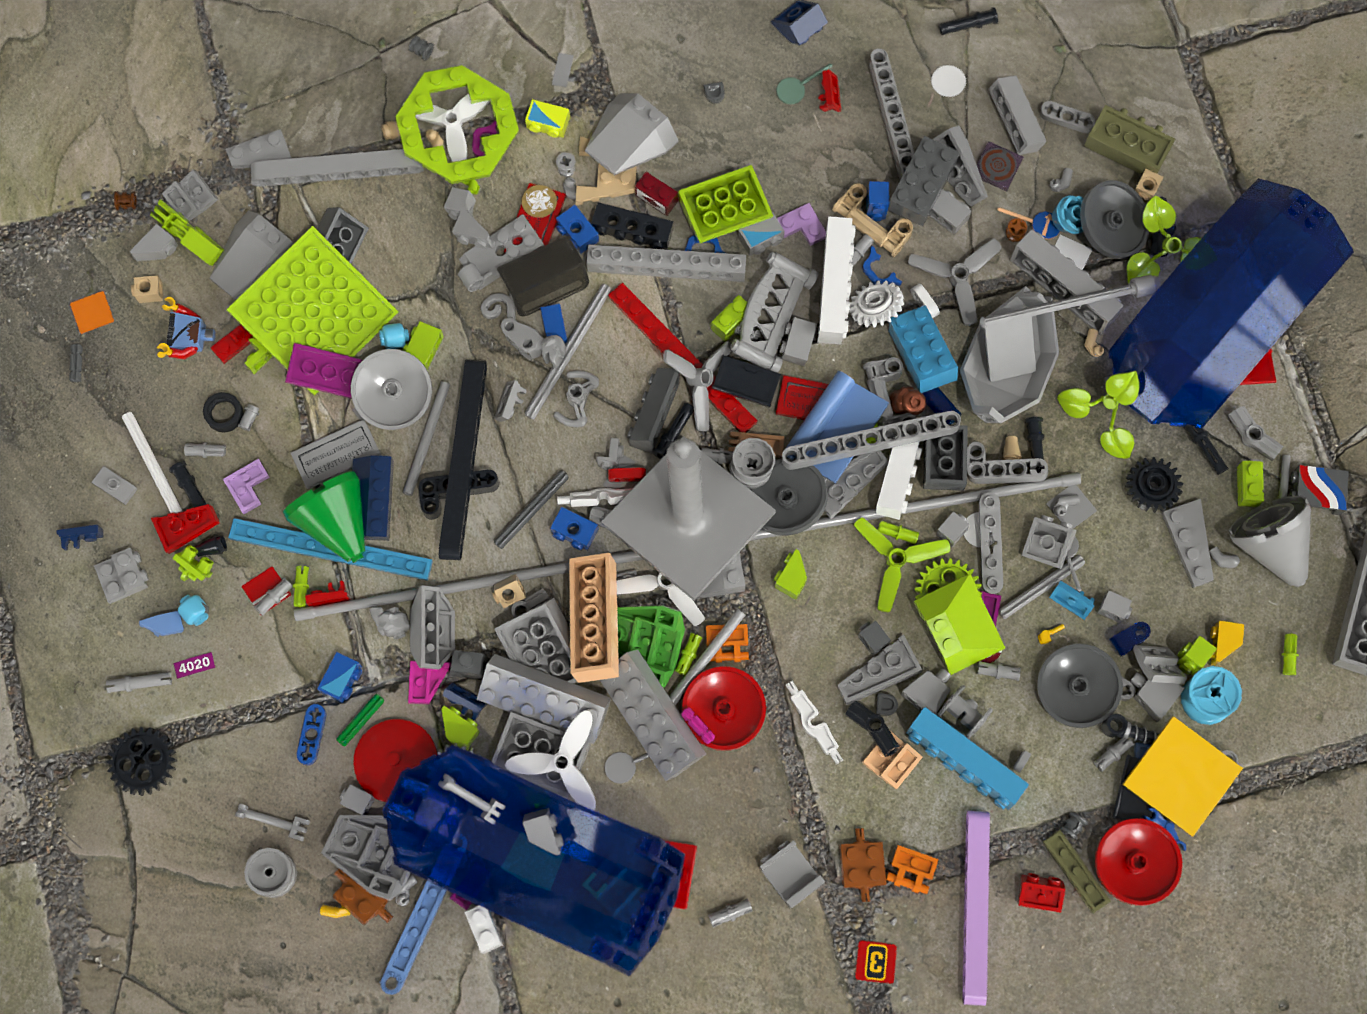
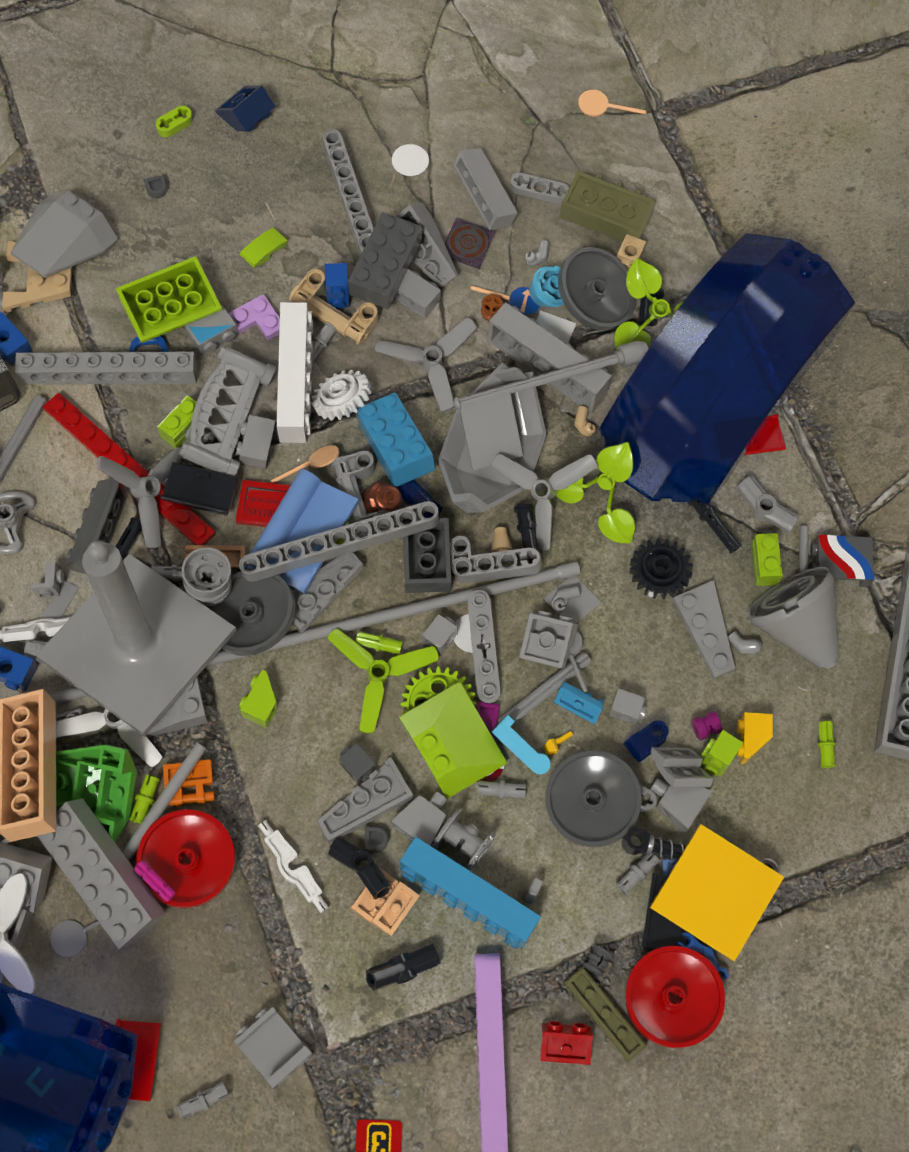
camera: 10 degrees left, 5 degrees down
(625, 218) = (37, 320): black brick -> none
(626, 474) = (66, 601): red beam -> none
(656, 193) = (93, 295): dark red brick -> none
(734, 32) = (174, 121): none -> lime beam
(793, 90) = (241, 179): sand green piece -> none
(810, 157) = (262, 247): none -> lime slope
(832, 94) = (283, 176): red plate -> none
(852, 361) = (320, 458): none -> light nougat piece
(862, 865) = (356, 1029): dark orange plate -> none
(870, 273) = (332, 362): blue helmet -> none
(897, 480) = (374, 583): white brick -> none
(905, 817) = (402, 968): none -> black piece
(914, 863) = (415, 1021): orange plate -> none
(923, 298) = (393, 385): white beam -> none
(977, 20) = (437, 95): black pin -> none
(1030, 648) = (537, 762): none -> medium azure leg
(1042, 396) = (559, 480): none -> light grey piece
(1124, 36) = (596, 103): none -> light nougat piece
(1184, 629) = (706, 725): none -> magenta wheel
(1211, 695) = (737, 782): medium azure piece -> none

